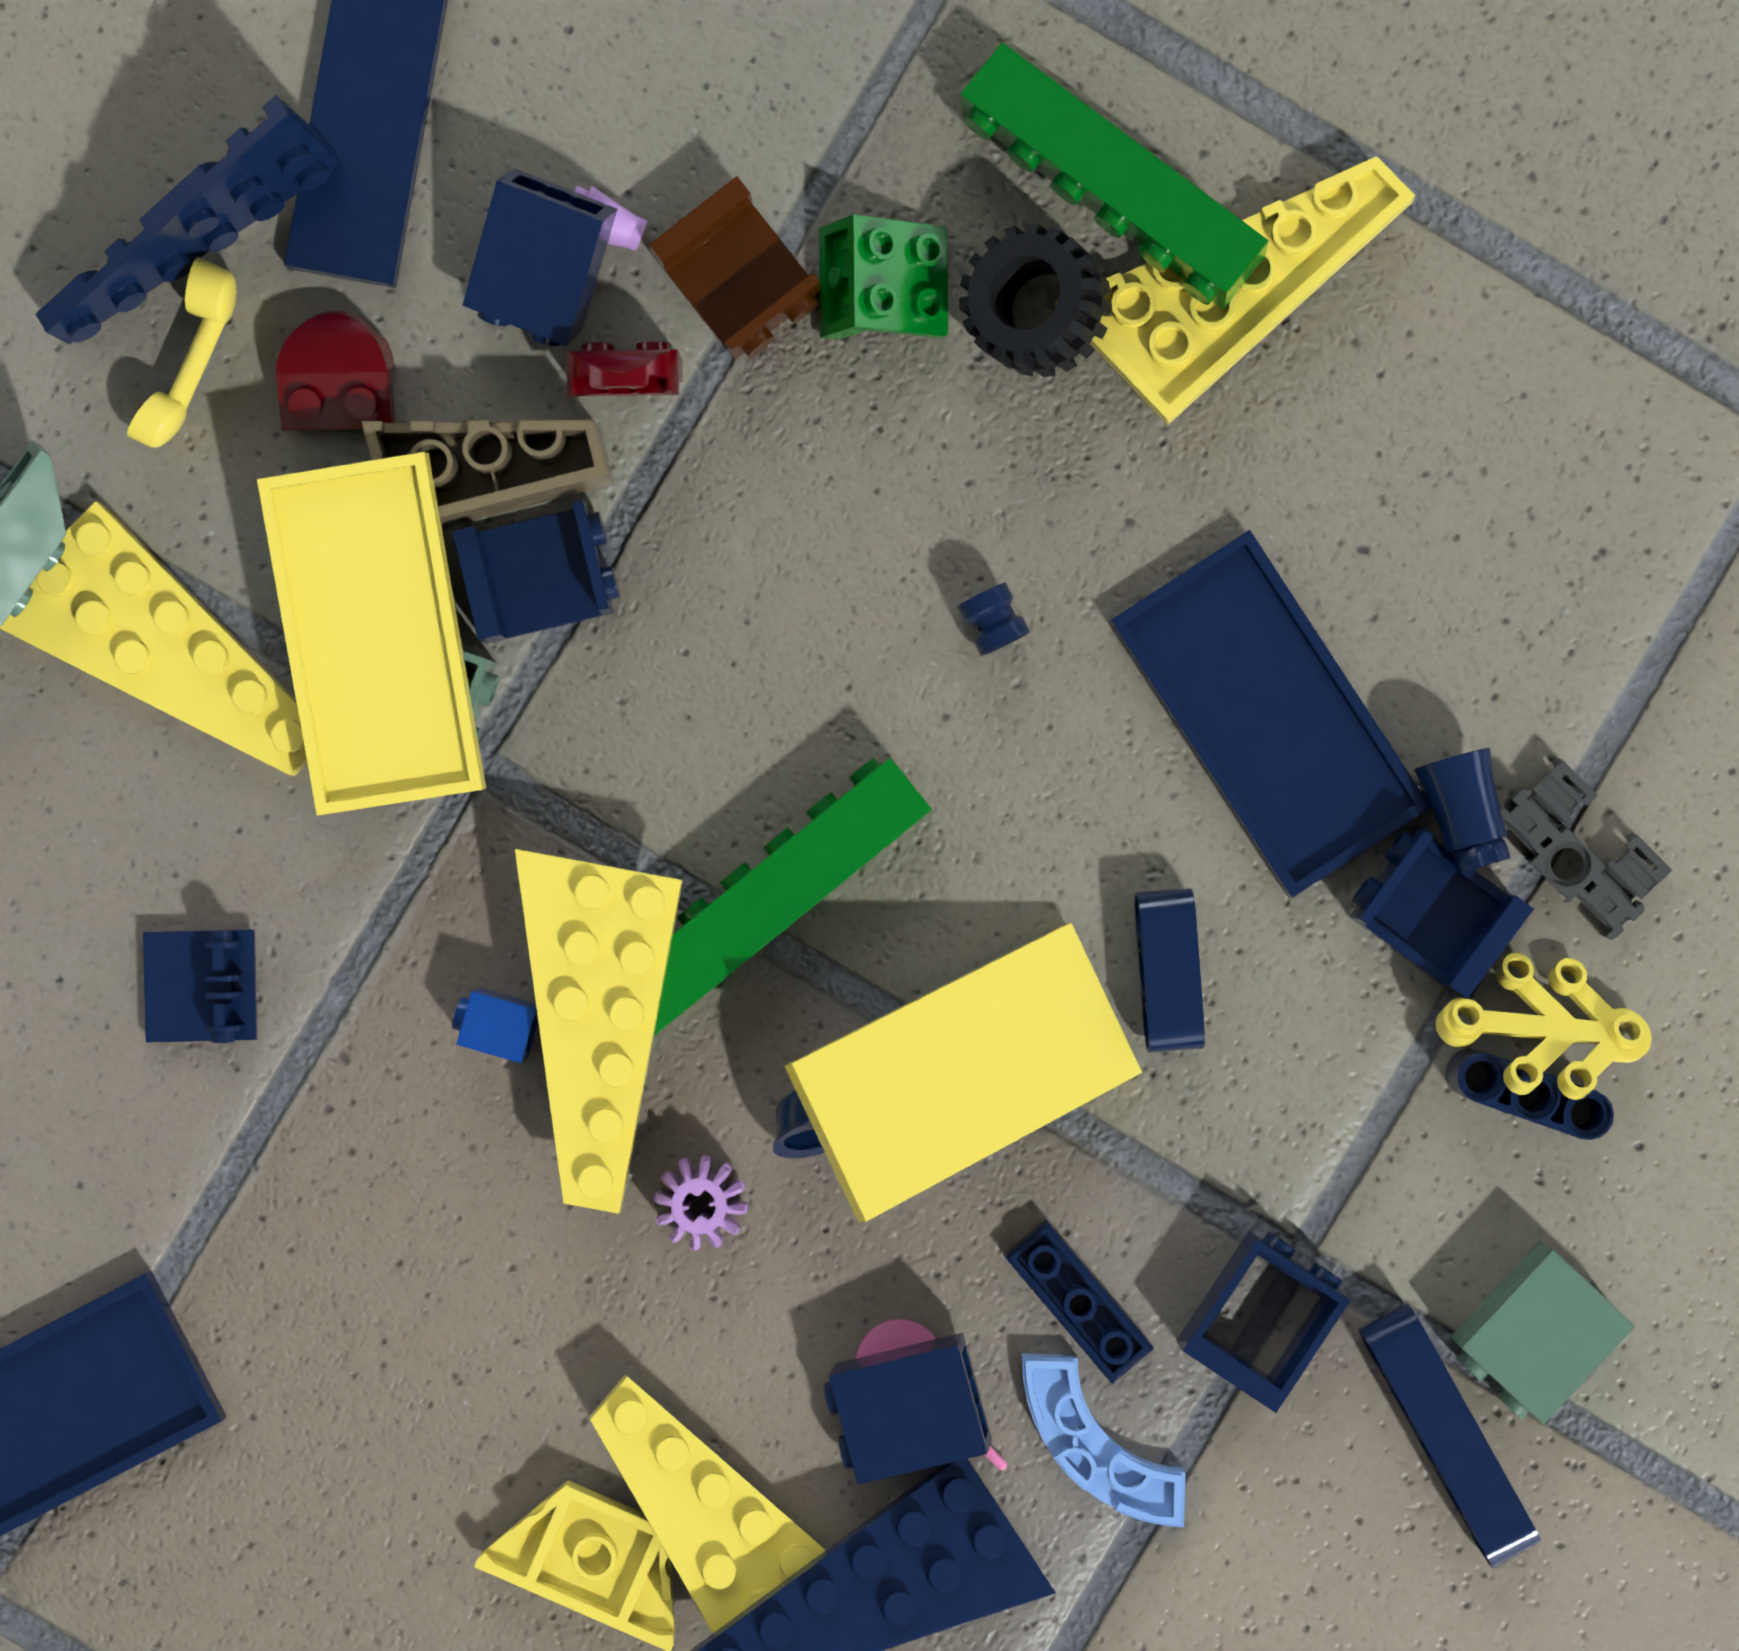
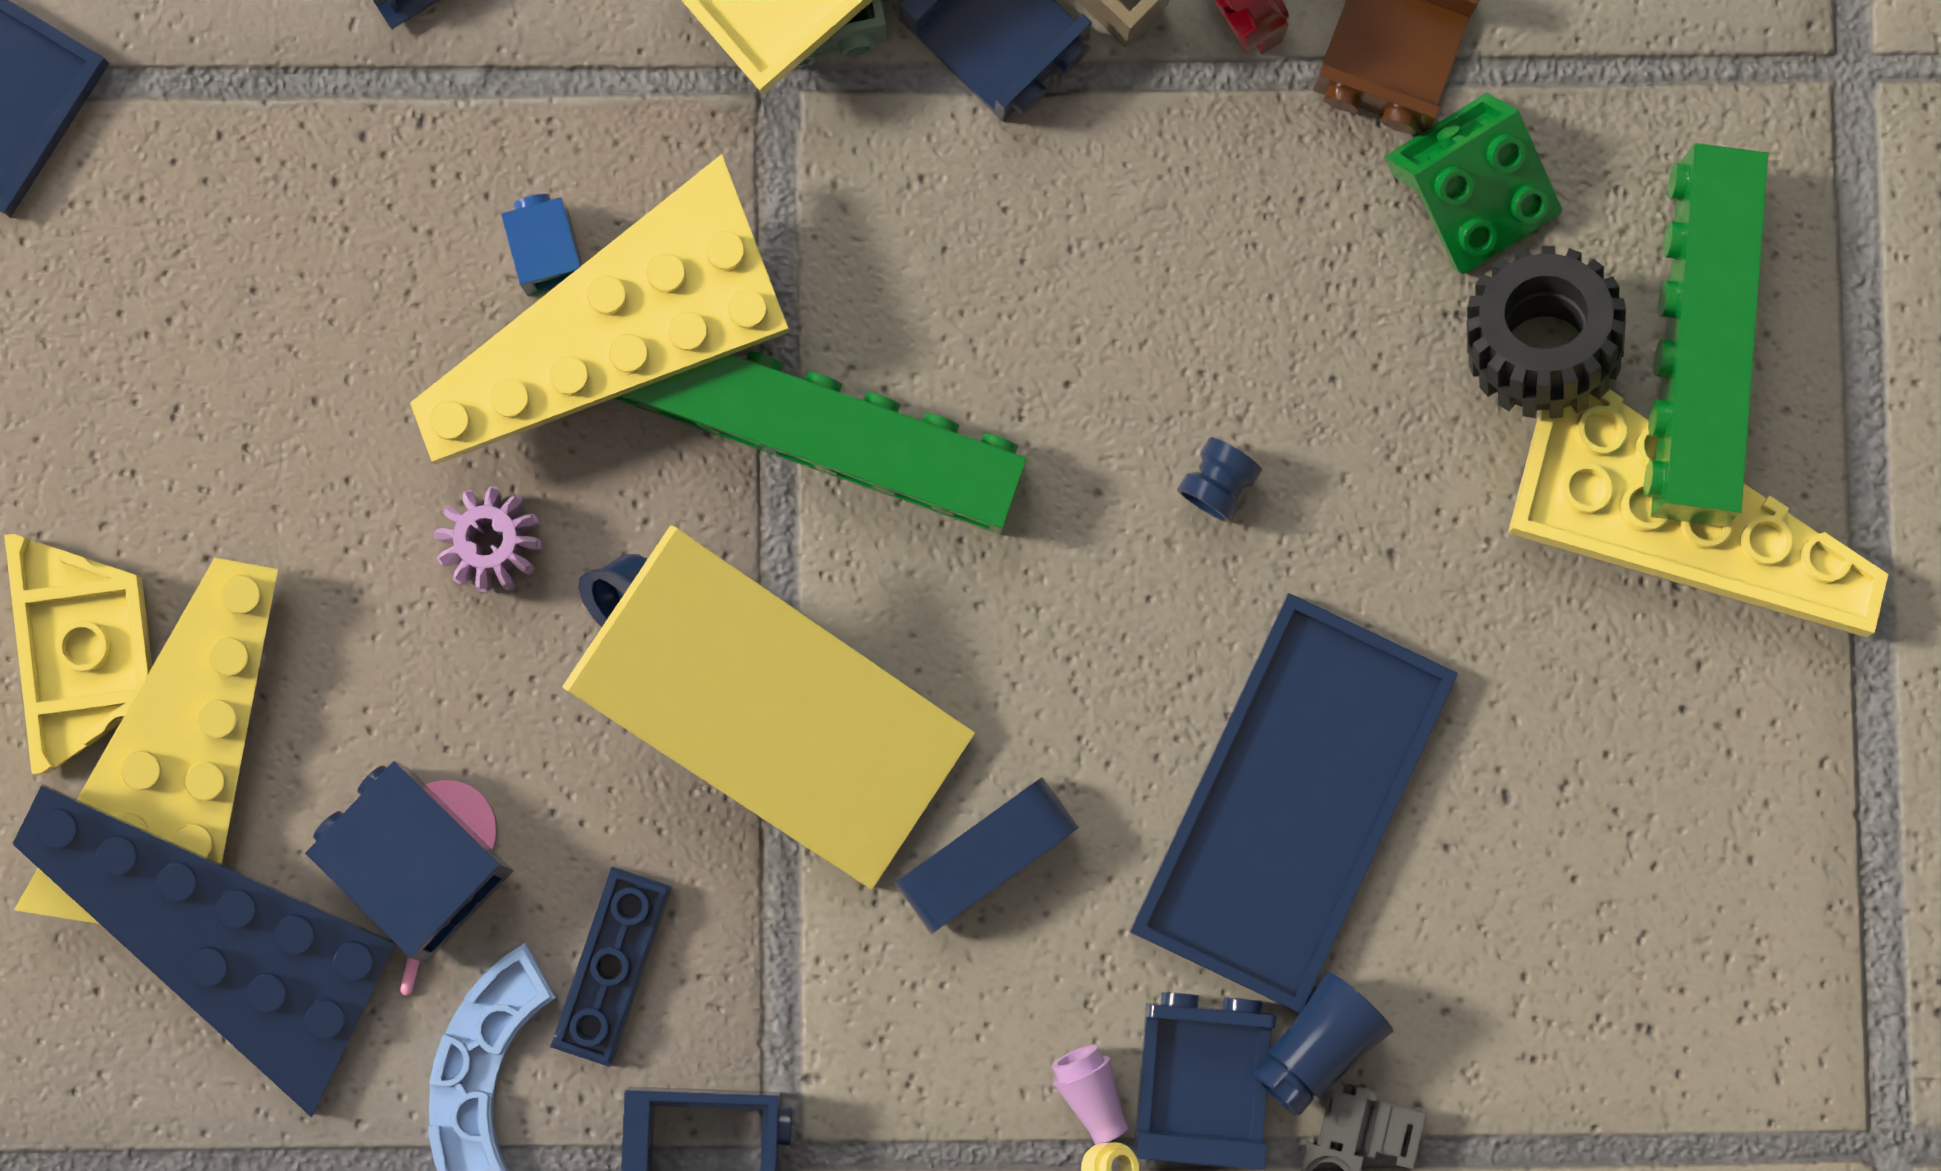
camera: 50 degrees right, 5 degrees down
(1391, 1000) = (1090, 1090): none -> lavender cone

